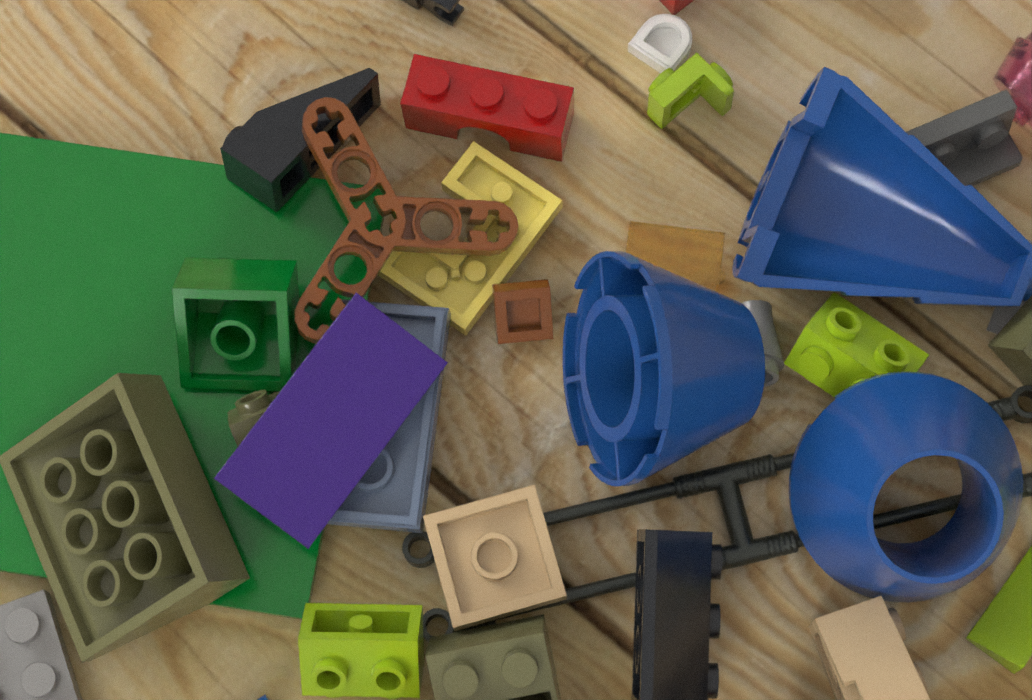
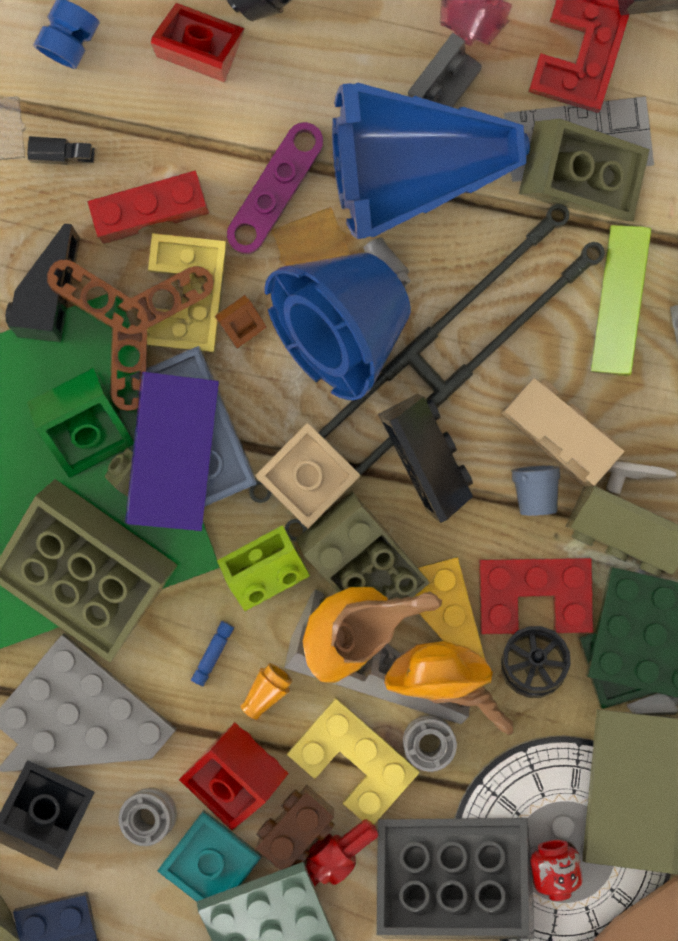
camera: 35 degrees left, 15 degrees up
(662, 42) = (229, 105): white tile -> none
(664, 172) = (275, 188): none -> magenta plate
(678, 89) = (254, 133): lime bracket -> none
(849, 346) = (448, 249): lime brick -> none
(864, 441) = (489, 289): blue cone -> none

